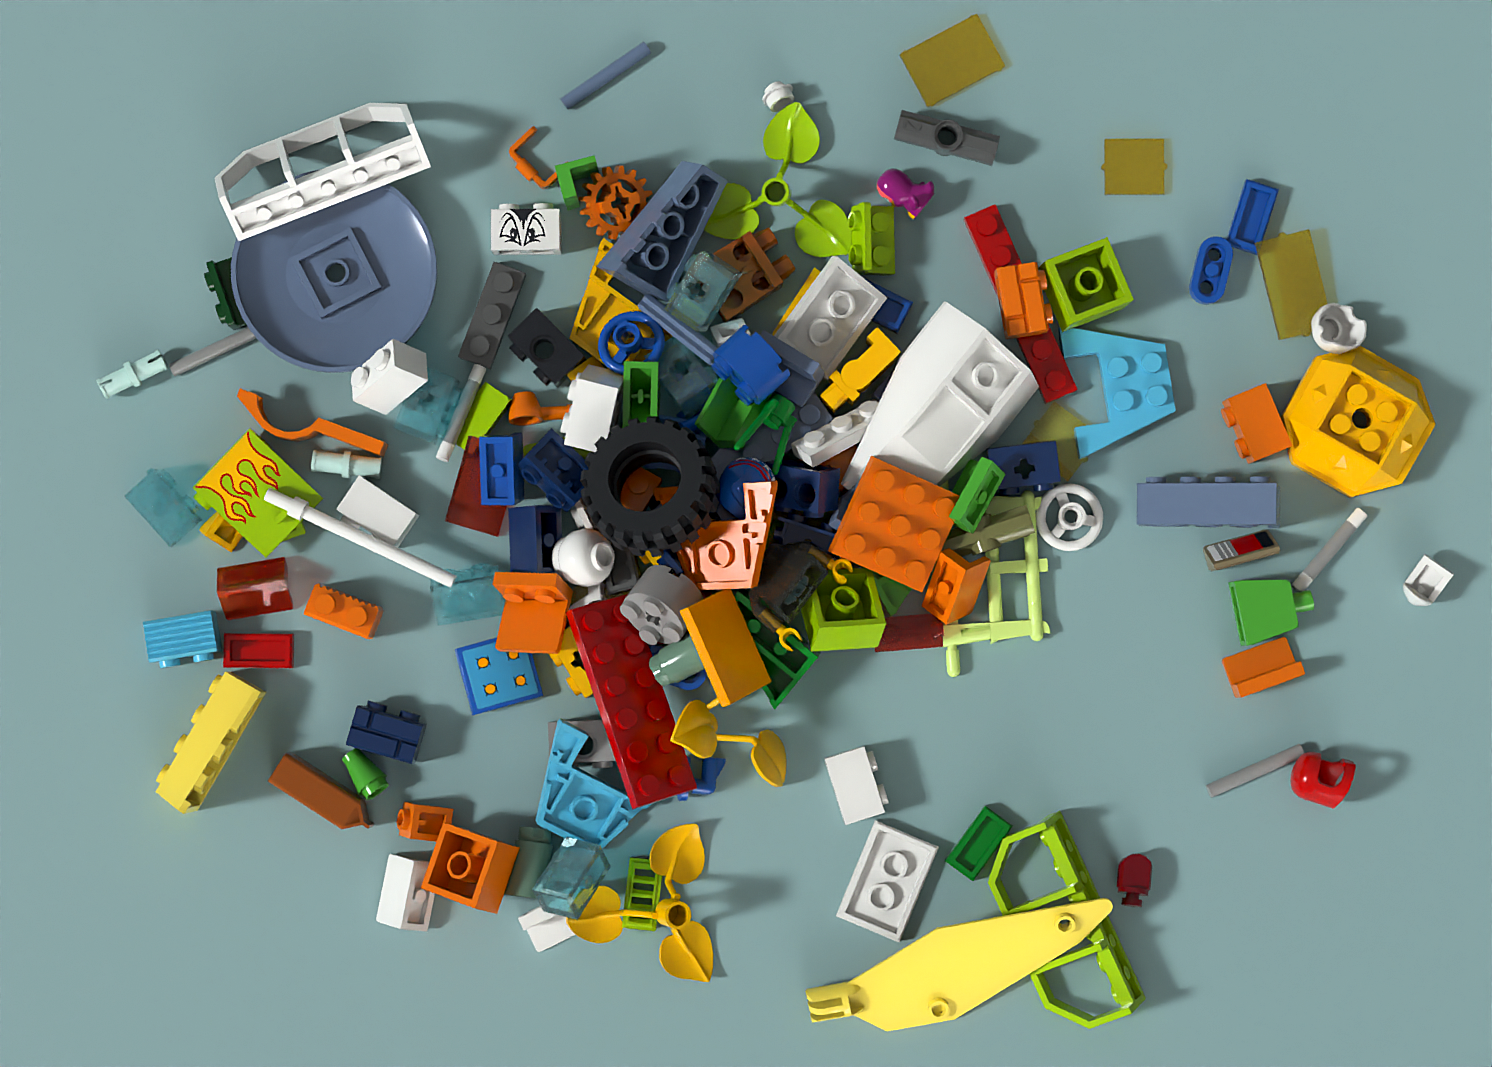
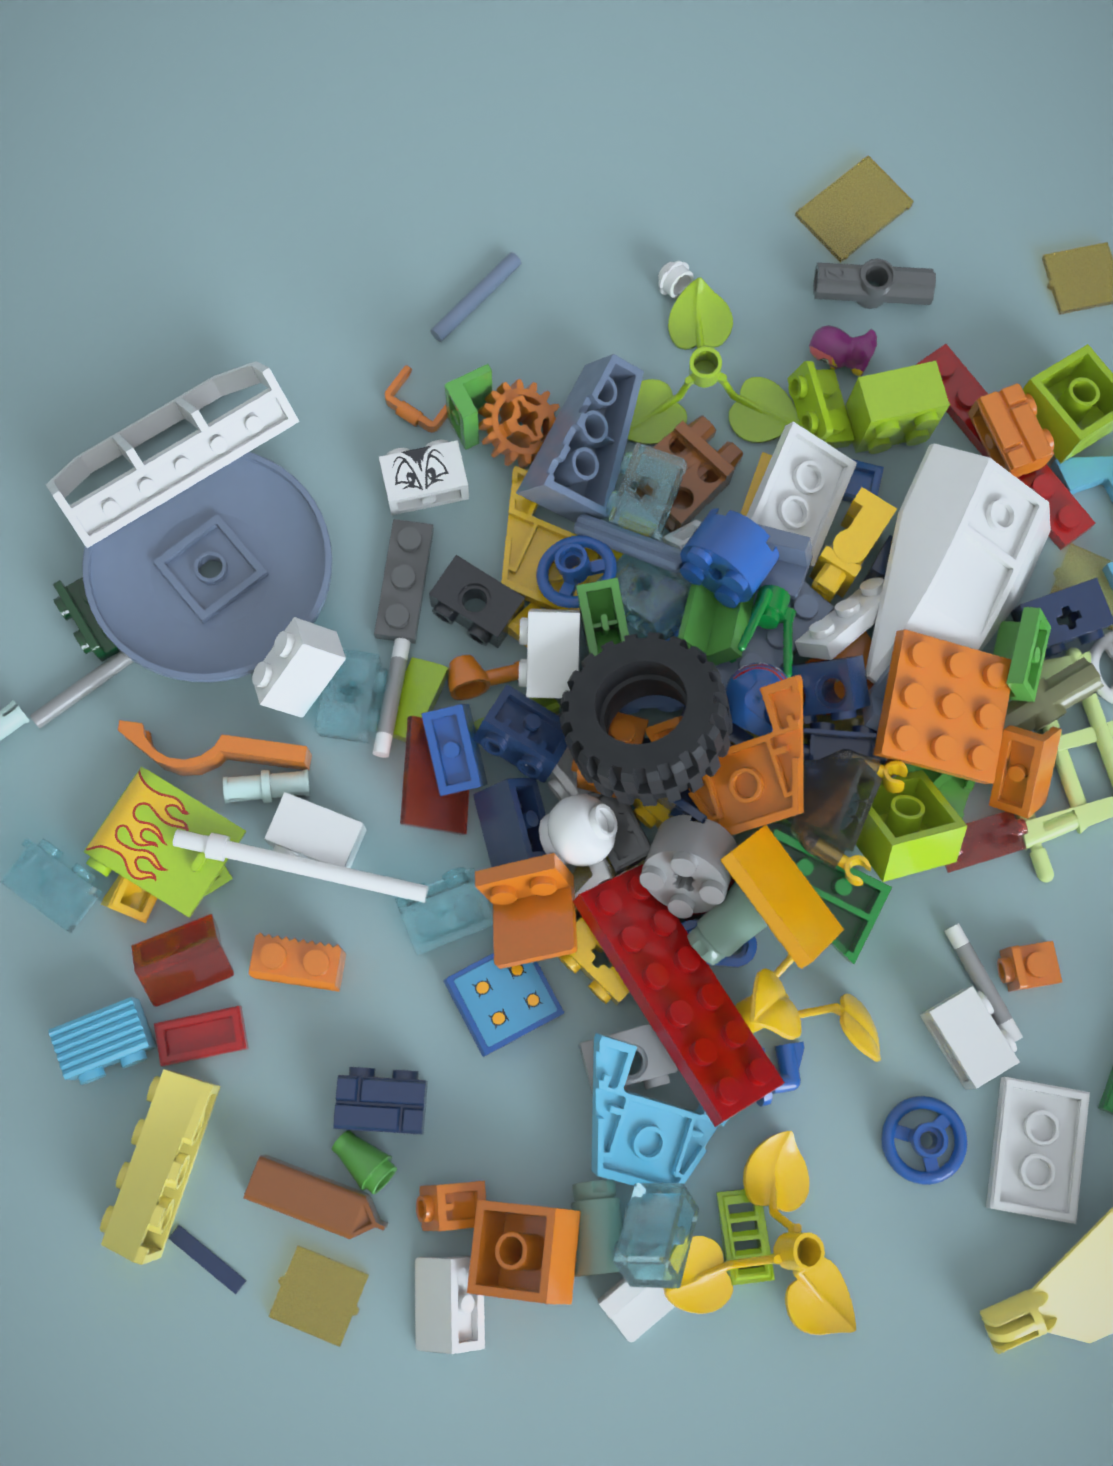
camera: 15 degrees left, 10 degrees down
(232, 819) = (207, 1259): none -> dark blue piece
(311, 865) = (318, 1295): none -> clear yellow piece
(777, 841) = (936, 1128): none -> blue piece
(879, 745) = (982, 980): none -> light grey bar
(919, 740) = (1029, 966): none -> orange bracket
(931, 258) = (896, 407): none -> lime brick

